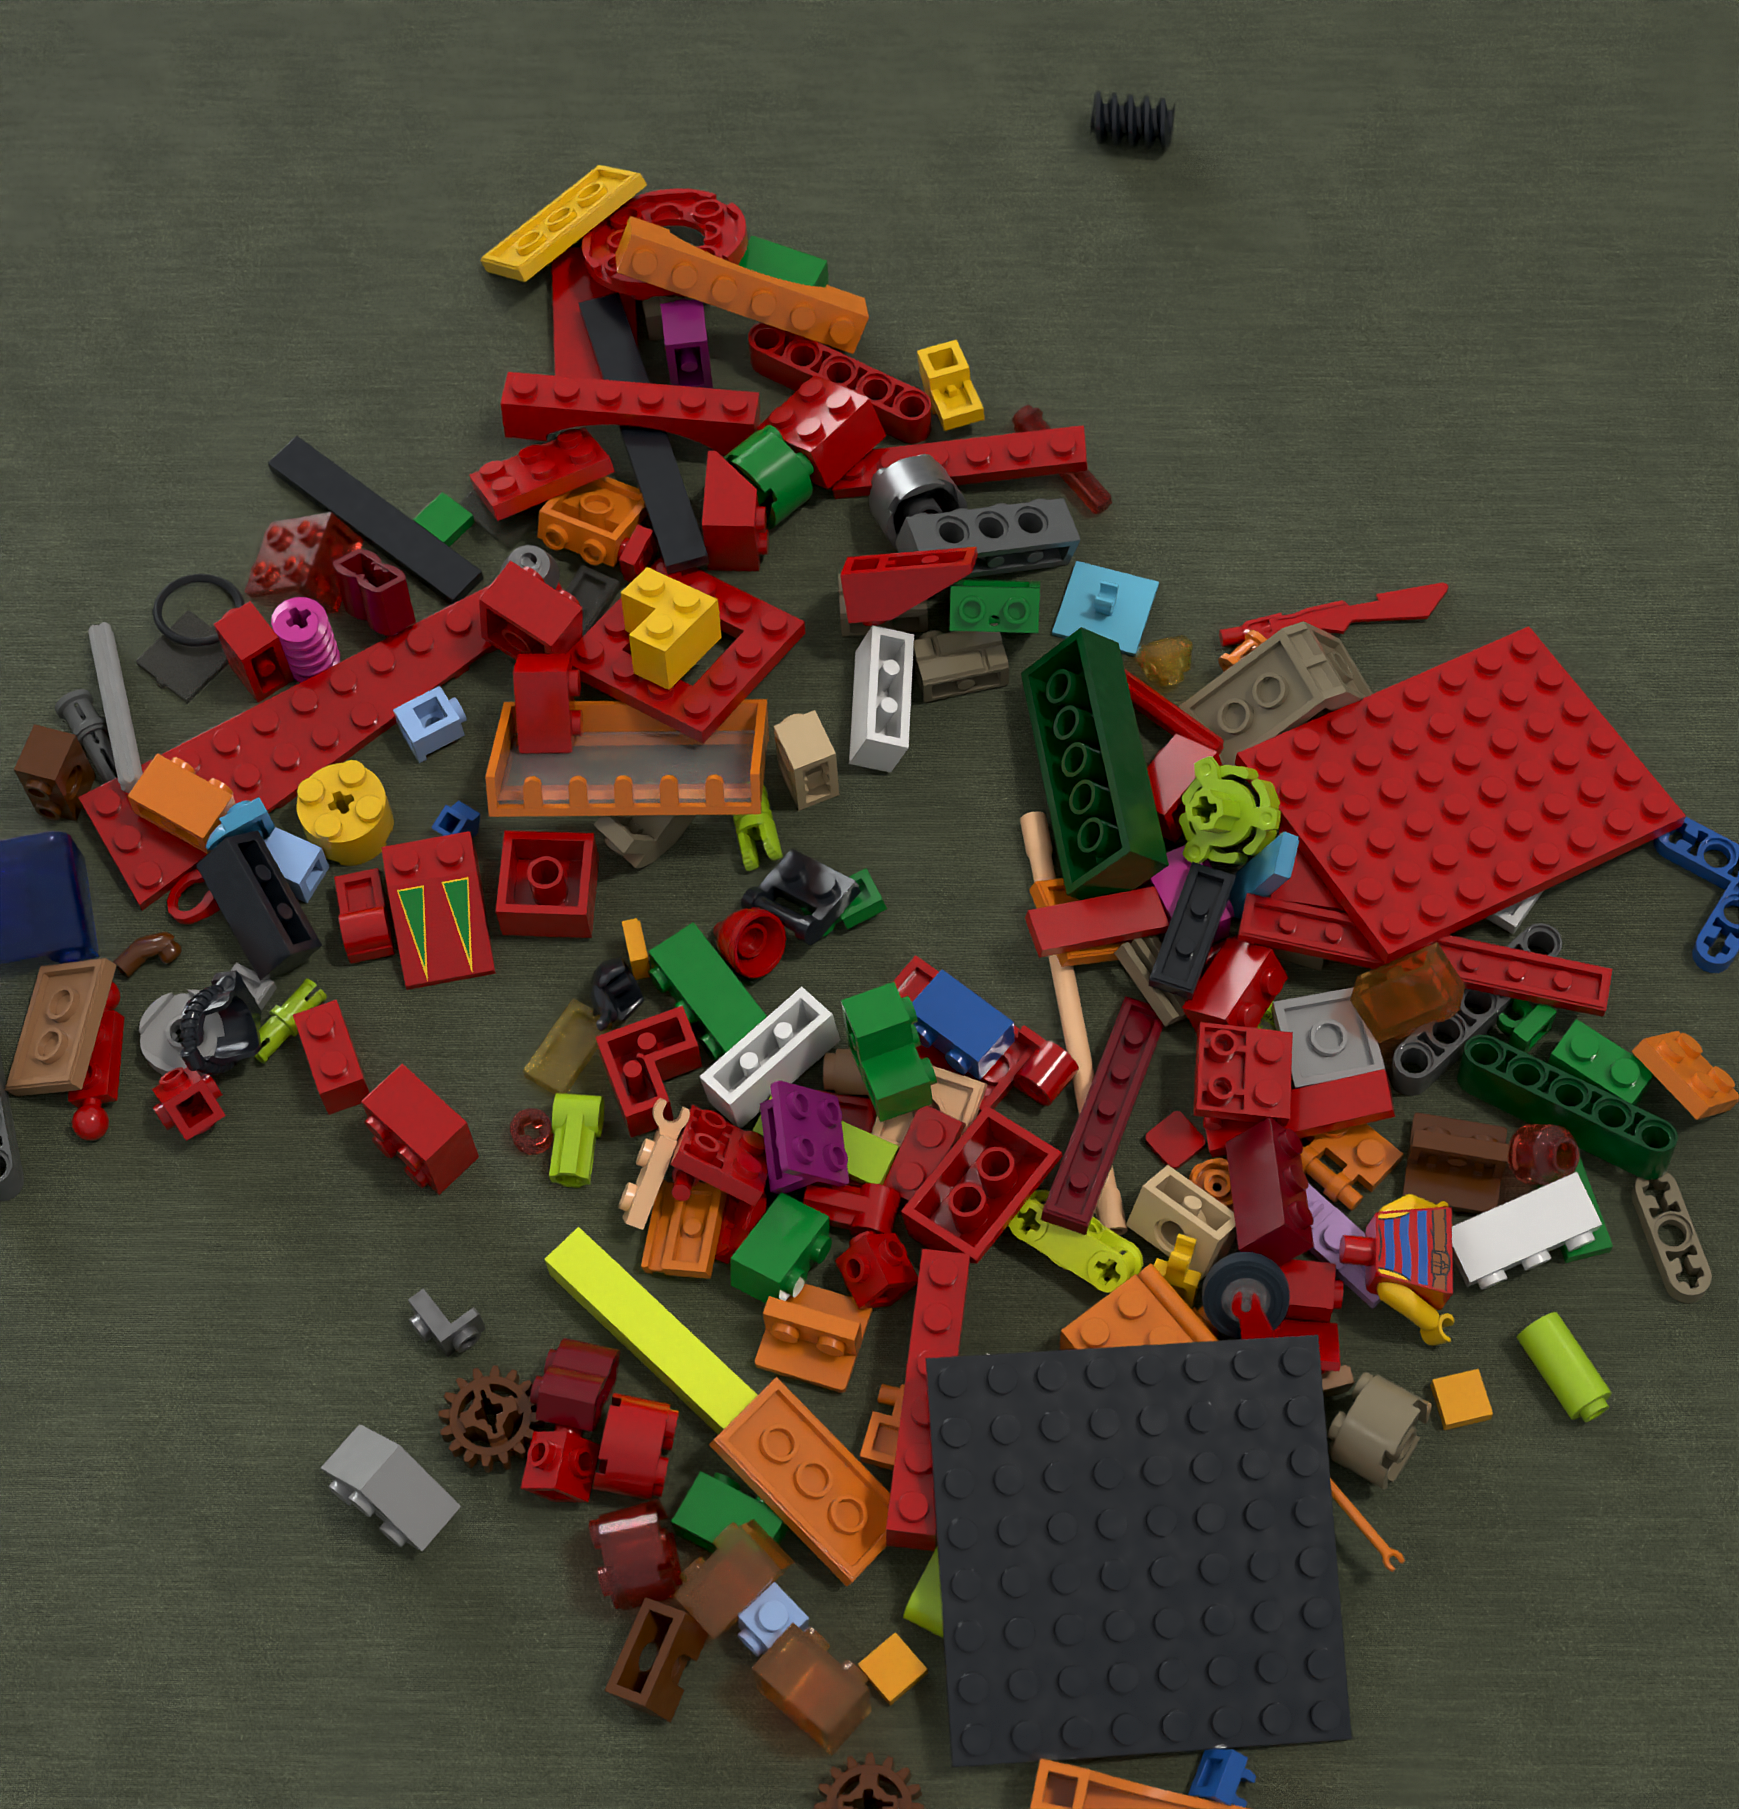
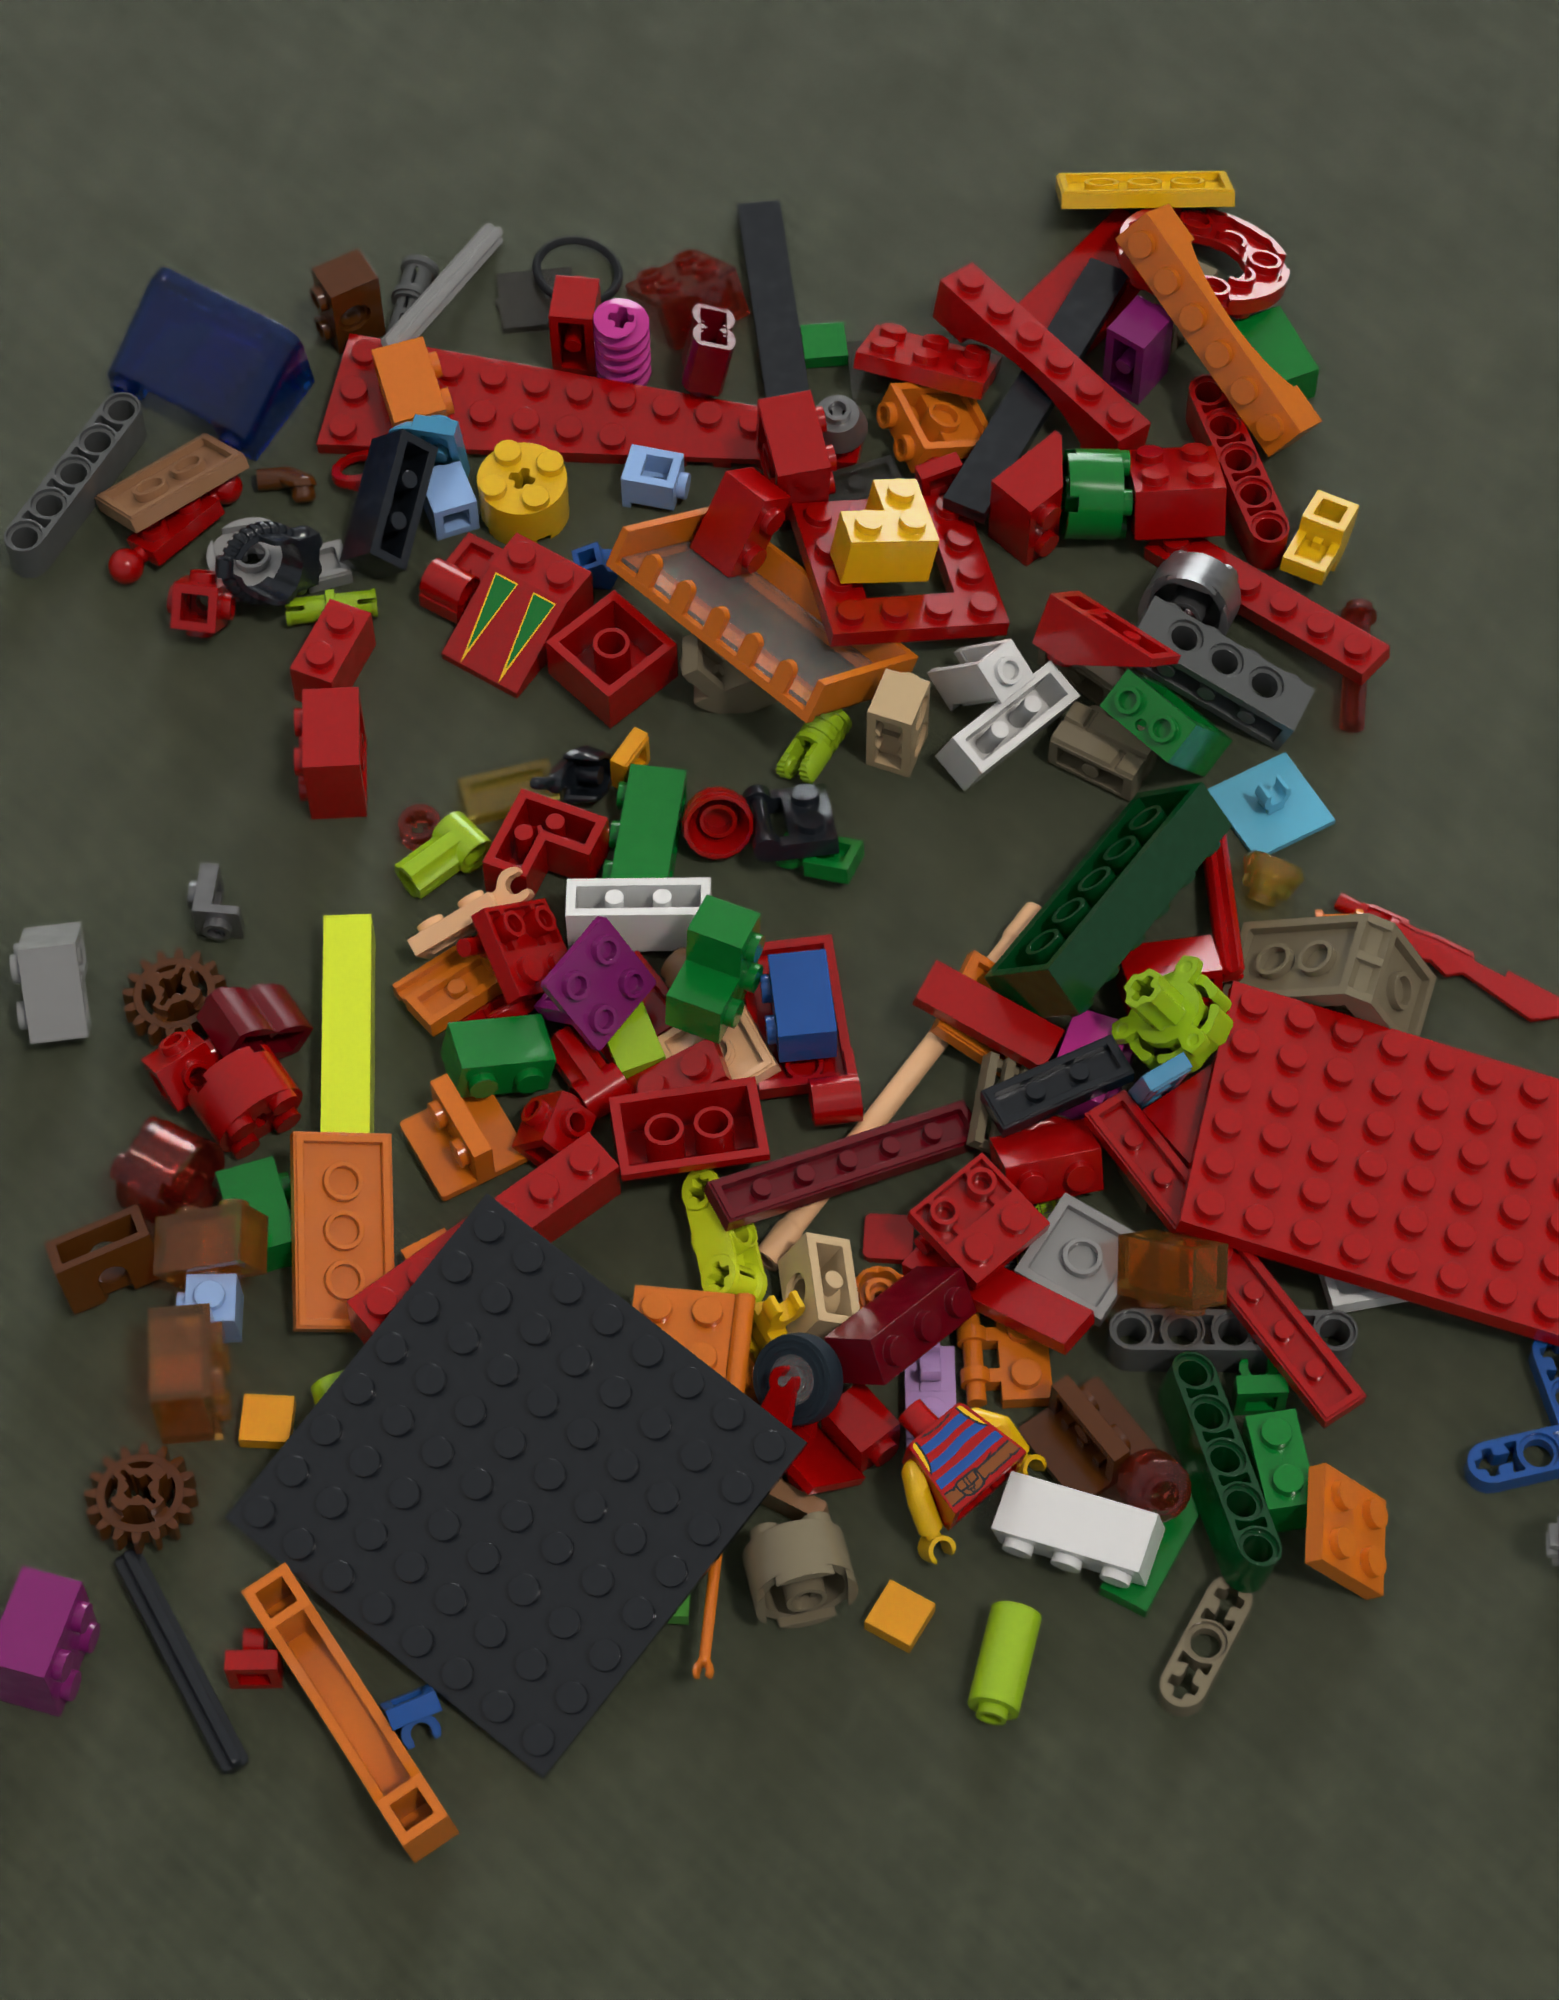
camera: 40 degrees right, 5 degrees down
(834, 673) = (984, 674): none -> white window

